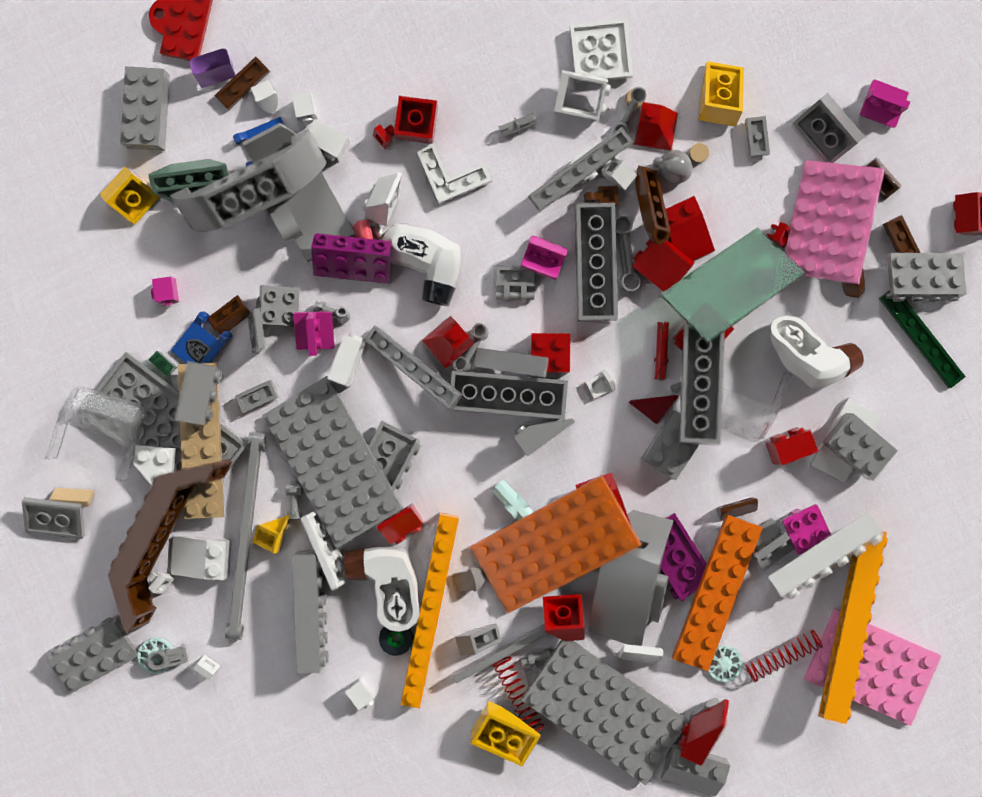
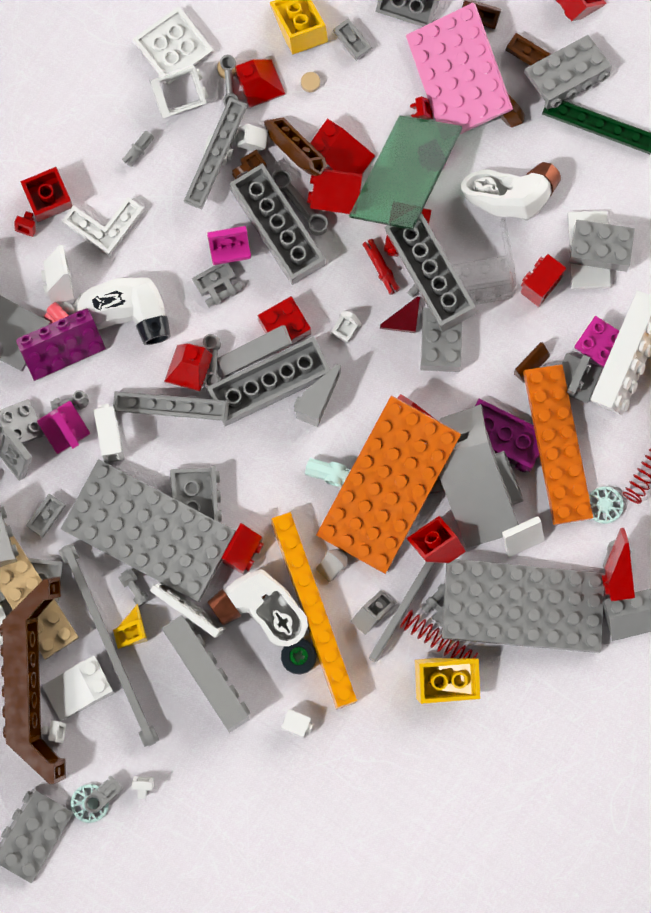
camera: 35 degrees left, 10 degrees down
(674, 166) = (295, 105): light grey piece -> none

